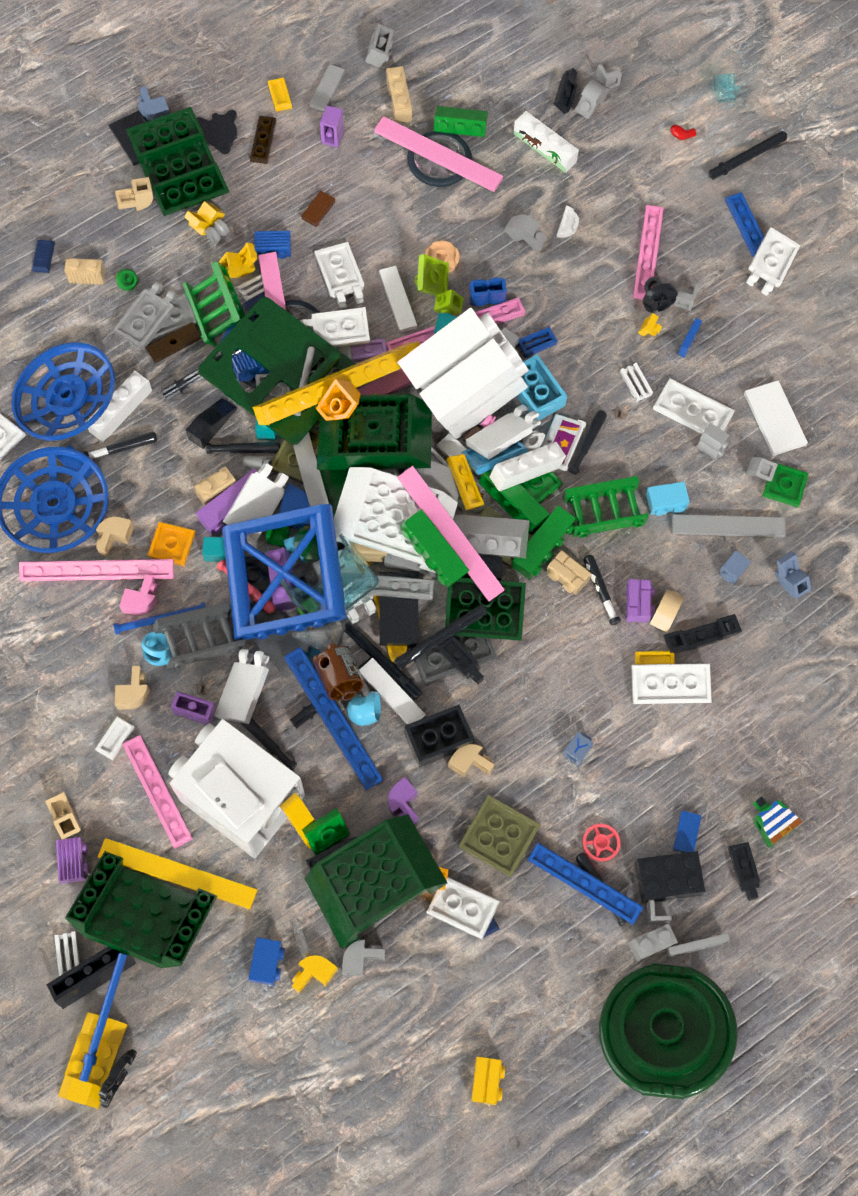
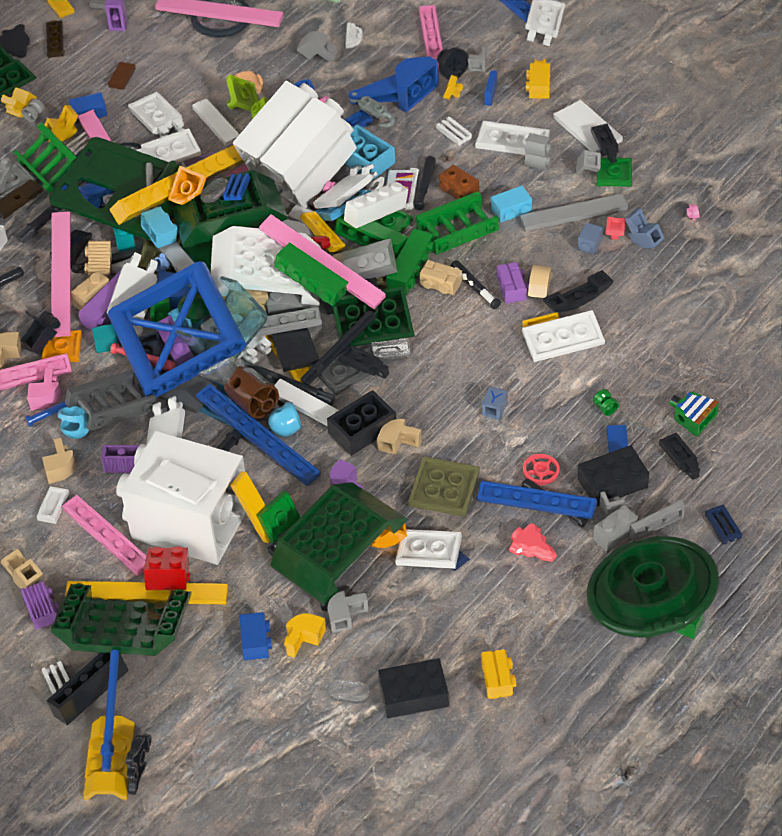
camera: 10 degrees left, 20 degrees down
(152, 526) = (40, 331): none -> black piece
(189, 461) = (61, 272): none -> bright pink tile
(201, 859) = (166, 568): none -> red brick
(232, 450) = (98, 258): none -> tan brick
(294, 475) = (163, 263): none -> light blue plate
(300, 435) = (159, 227): none -> medium azure brick
(365, 412) = (214, 190): none -> clear tile
(392, 404) = (232, 187): none -> blue tile
(401, 1073) = (413, 688): none -> black brick
(460, 496) = (323, 240): none -> red arm
(493, 650) = (391, 349): none -> clear tile
(565, 934) = (531, 543): none -> coral rock
(600, 315) = (410, 84): none -> blue slope
(621, 456) = (458, 182): none -> dark orange brick
(689, 782) = (606, 403): none -> green wheel
(743, 340) = (538, 79): none -> yellow brick
(765, 561) = (615, 227): none -> coral tile
(766, 948) = (729, 537): none -> dark blue tile
(787, 447) = (605, 141): none -> black hinge
(850, 563) = (693, 211): none -> bright pink plate

